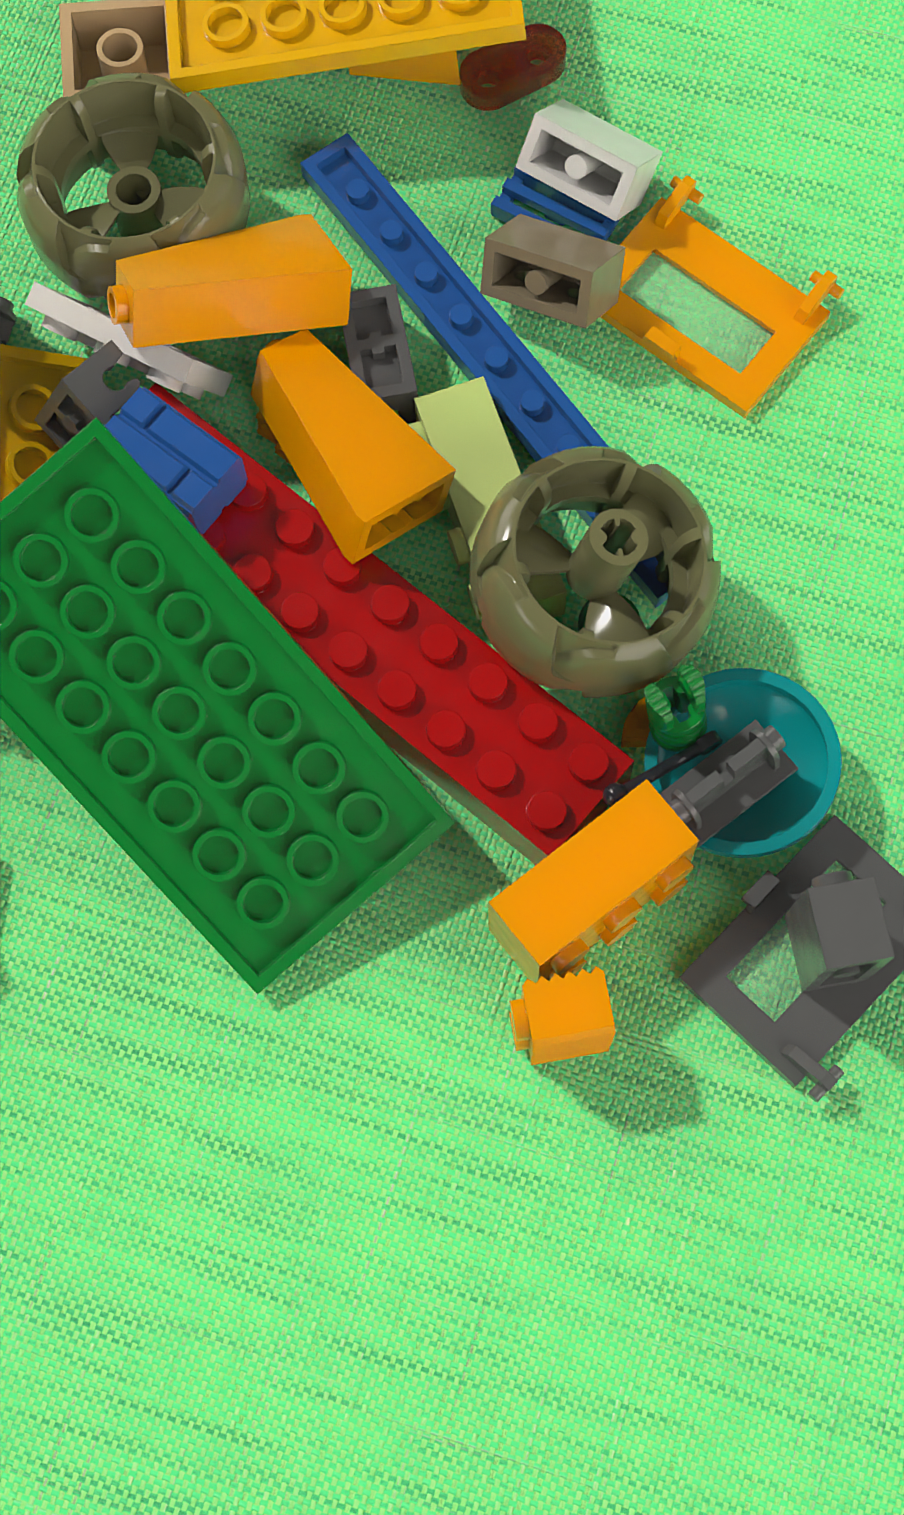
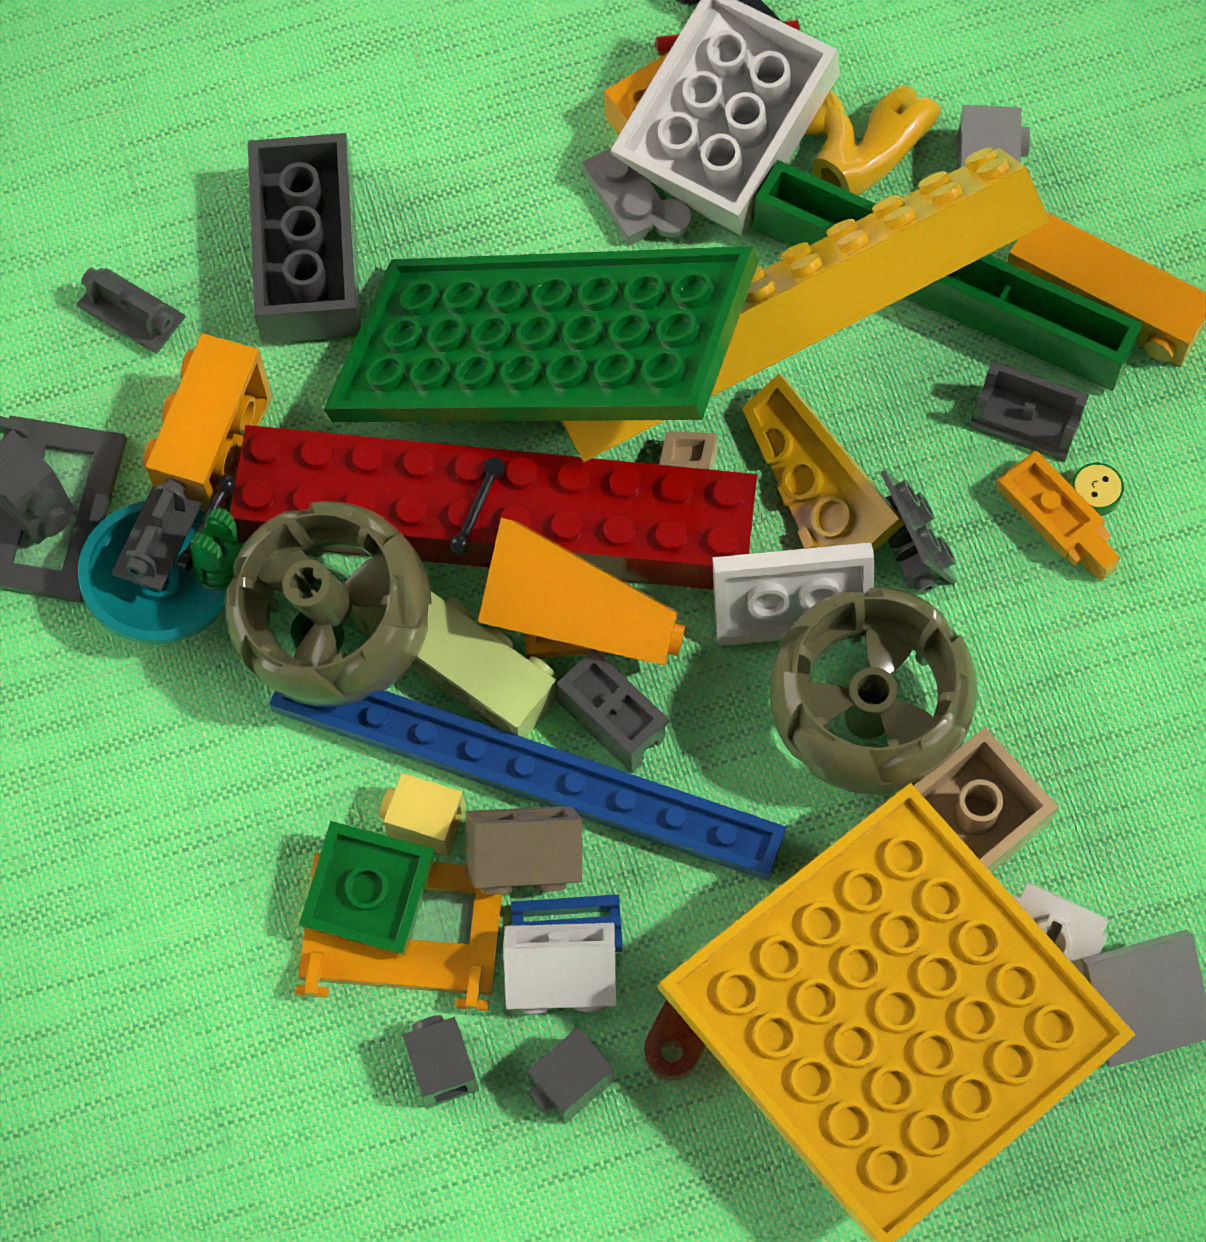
camera: 145 degrees right, 5 degrees down
(84, 397) = (790, 517): dark grey hinge -> none
(179, 457) = (676, 494): blue brick -> none
(233, 285) = (729, 652): light orange slope -> none
(327, 623) = (494, 470): none -> black hinge
(336, 1068) = (303, 238): none -> dark grey brick
(563, 1017) = (168, 333): light orange brick -> none
(584, 1130) = (129, 309): none -> dark grey hinge
(622, 373) = (423, 813): none -> light yellow brick
(642, 79) = (569, 1077): none -> dark grey brick
(721, 326) = (367, 888): none -> green plate
(747, 155) = (440, 1060): none -> dark grey brick

